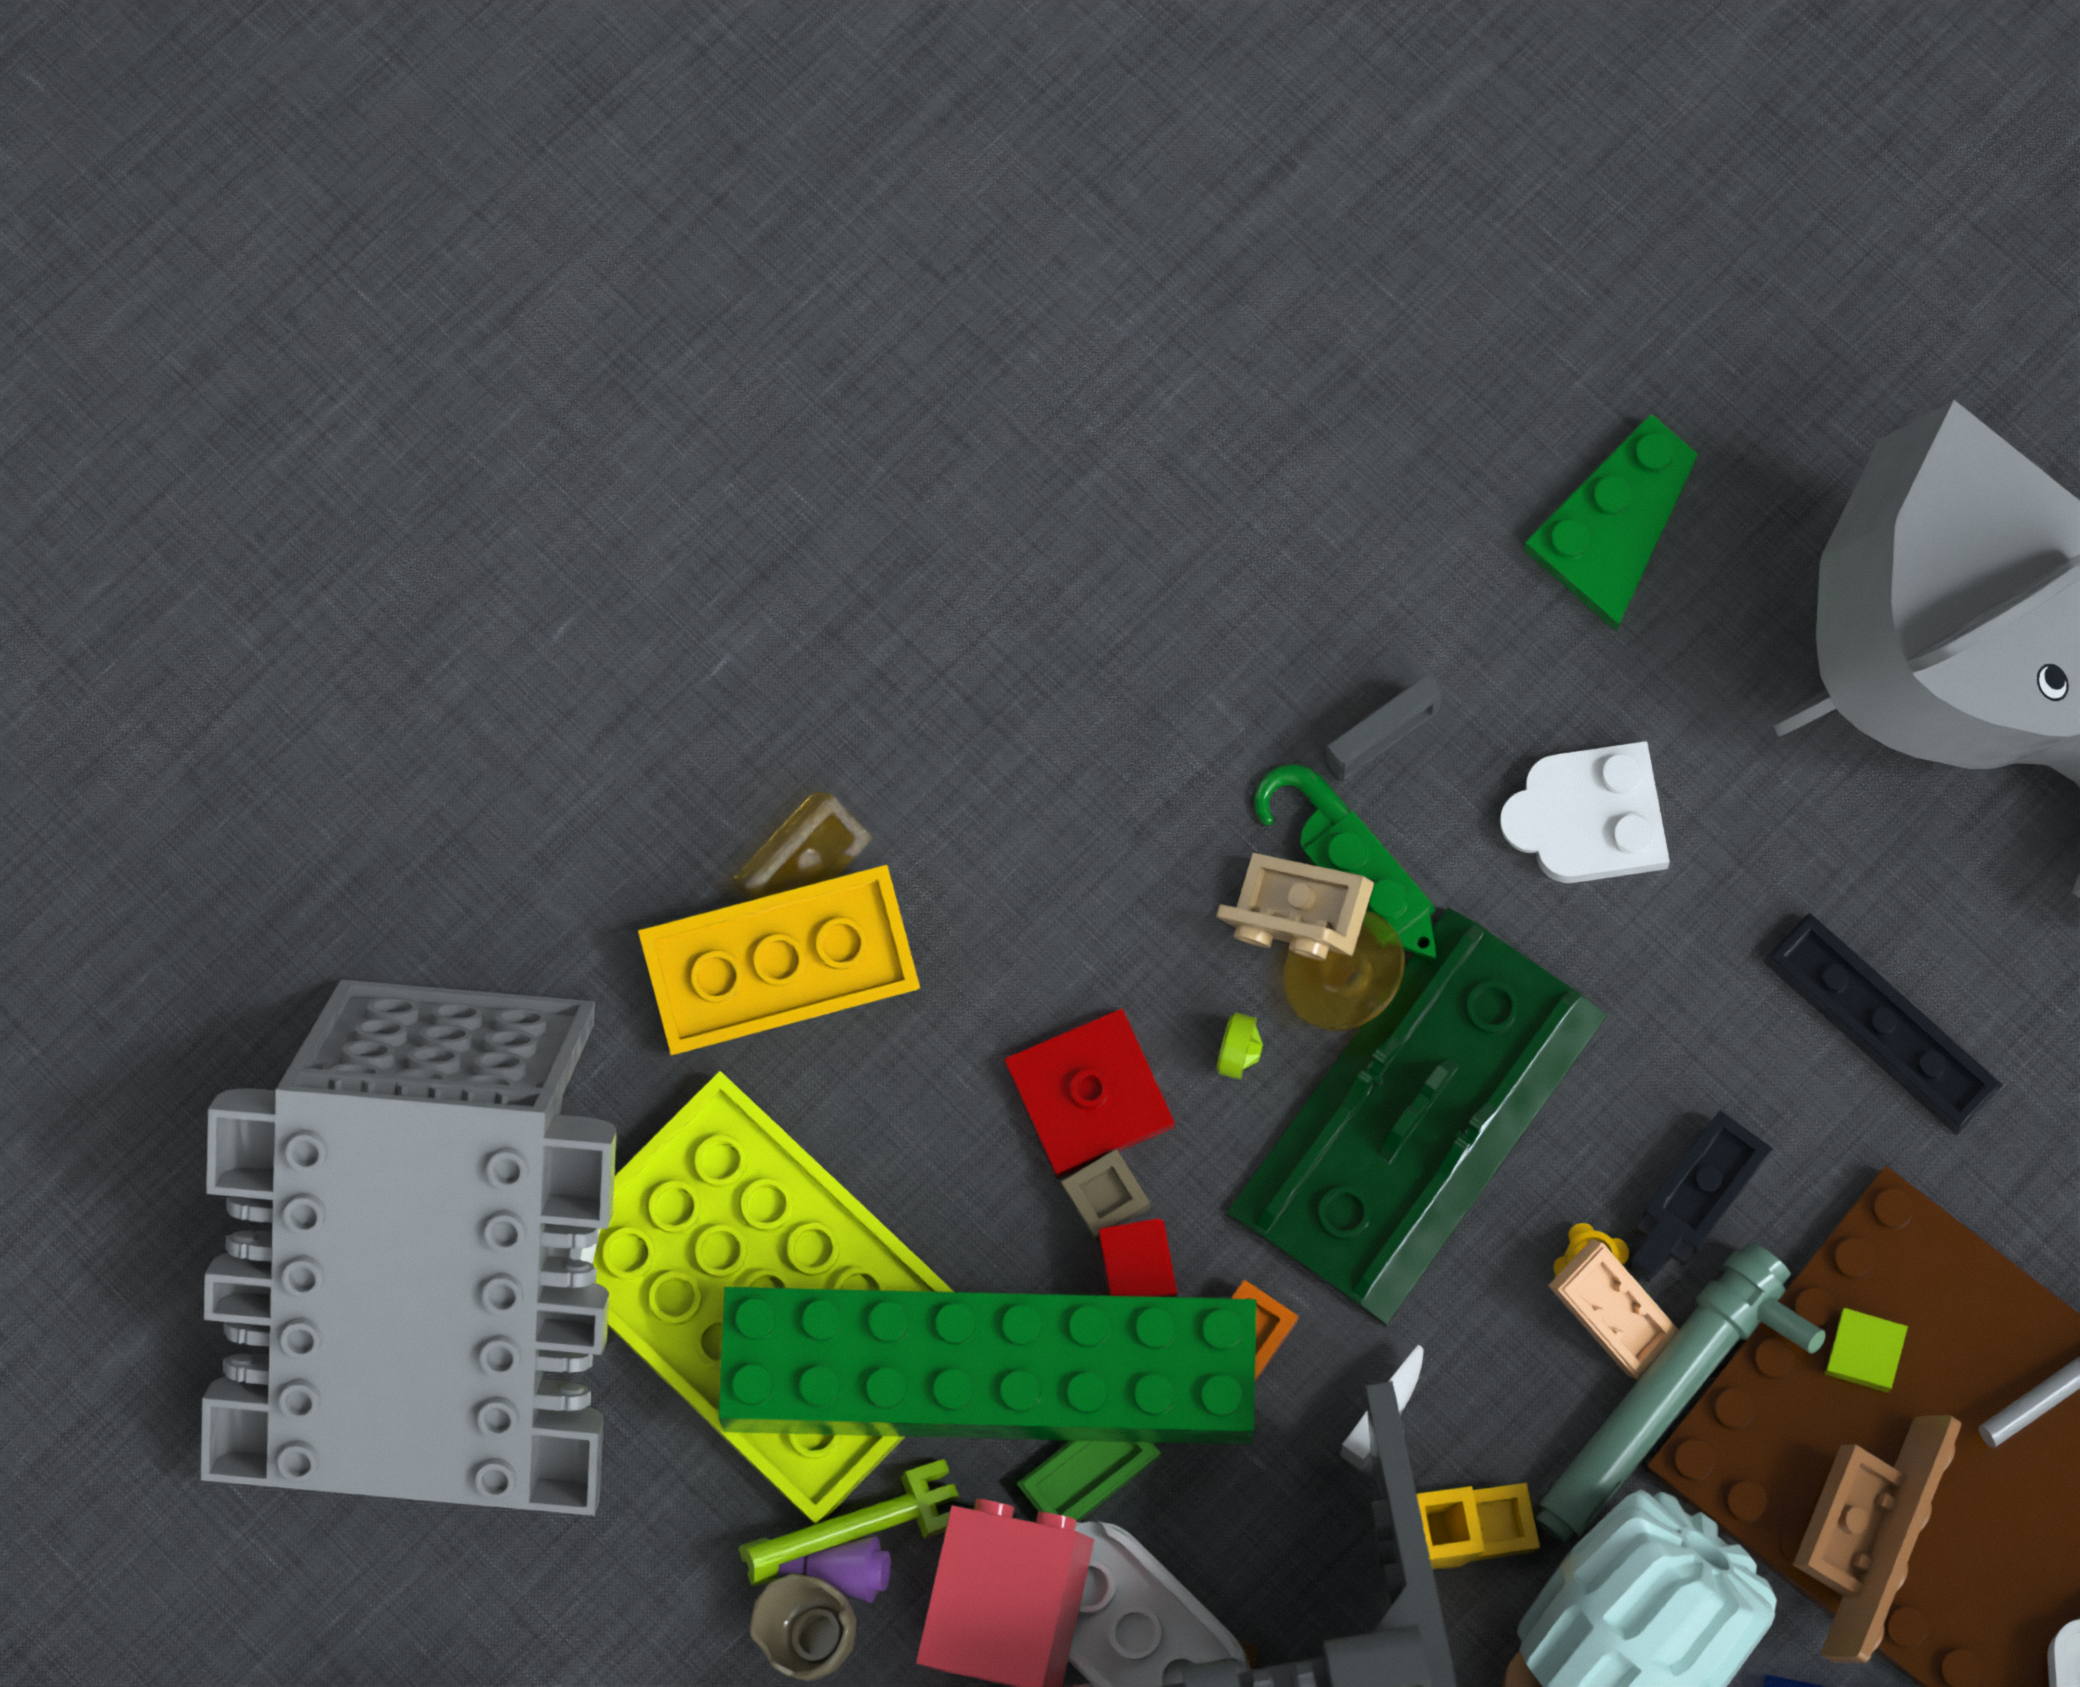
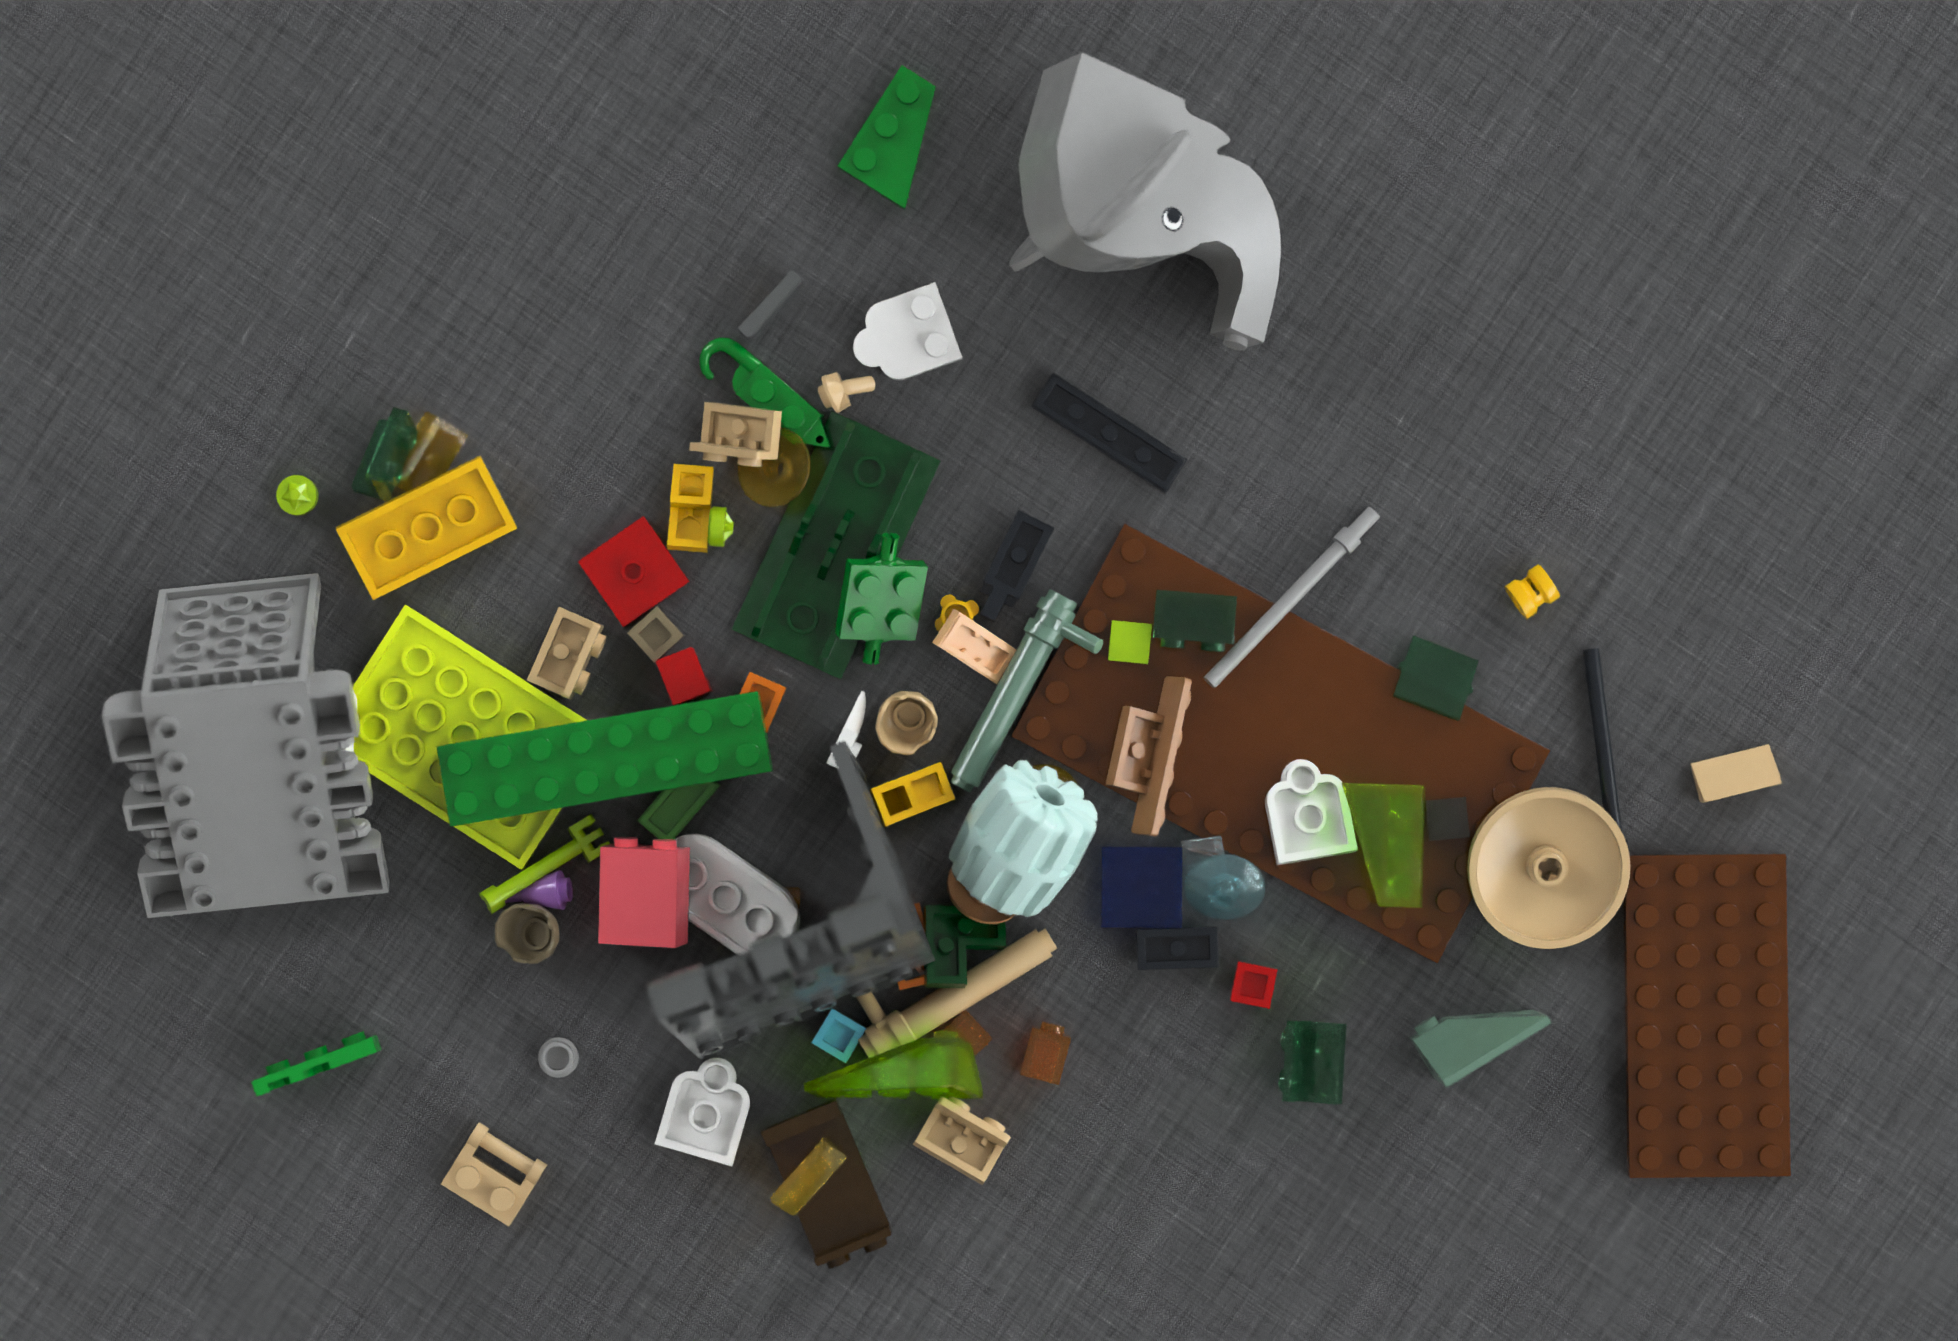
camera: 15 degrees left, 15 degrees up
(588, 877) = (297, 495): none -> lime tile
(741, 836) = (386, 456): none -> clear green bracket
(958, 1197) = (566, 654): none -> tan bracket
(1198, 1012) = (690, 507): none -> yellow slope
(1462, 875) = (835, 391): none -> tan plate
(1477, 1203) = (881, 599): none -> green plate
(1482, 1407) = (906, 722): none -> tan hair
(1978, 1331) = (1194, 619): none -> clear green bracket

